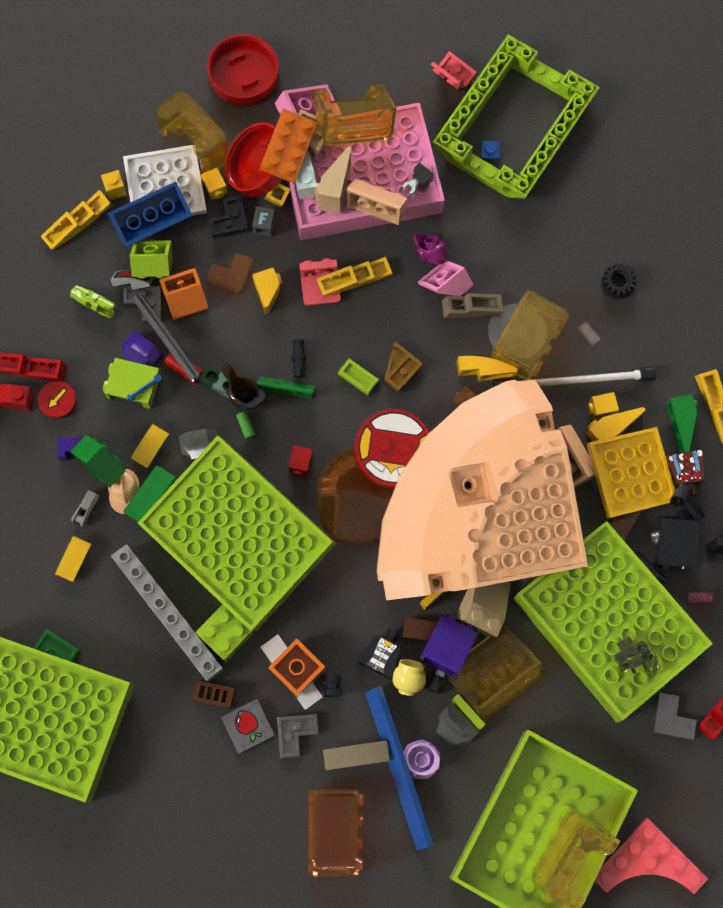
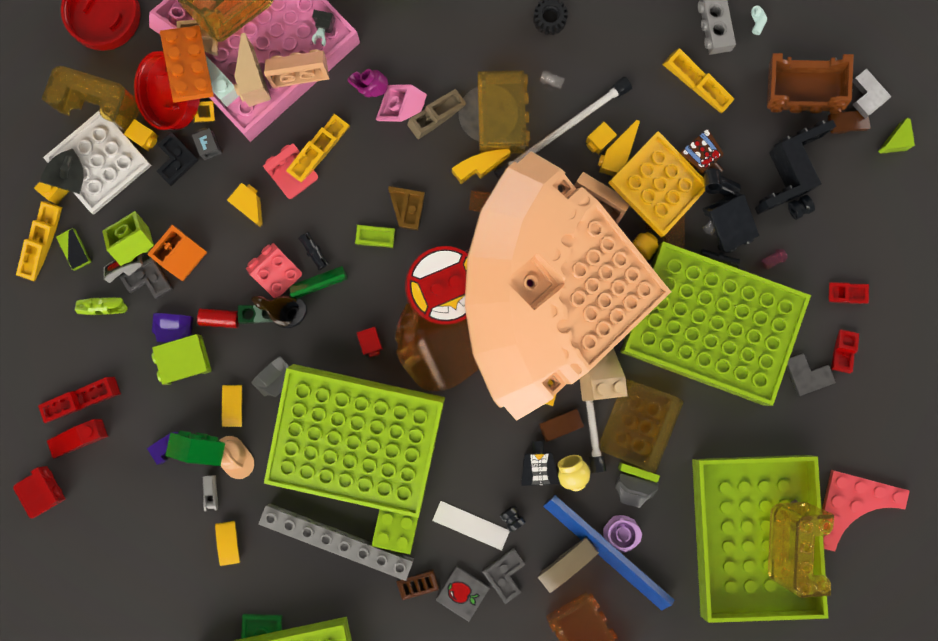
camera: 25 degrees left, 10 degrees up
(57, 399) = (124, 412): red tile -> none
(100, 243) = (73, 249): none -> tile
(133, 177) = (64, 172): none -> pearl dark grey shield
(149, 493) = (258, 448): green slope -> none
(150, 214) = (100, 199): blue slope -> none
(157, 379) = (201, 344): blue hinge -> none
(166, 337) = (186, 302): dark grey axle -> none
(231, 278) = (211, 211): clear orange tile -> none
(246, 425) = (304, 337): bright green axle -> none
(255, 355) = (273, 270): none -> coral bracket
(297, 668) = (475, 523): orange brick -> none
(449, 645) = (592, 428): dark purple slope -> none
(590, 518) = (646, 244): none -> yellow head
(644, 657) = (764, 344): clear smoke piece -> none
(683, 417) = (675, 109): green slope -> none

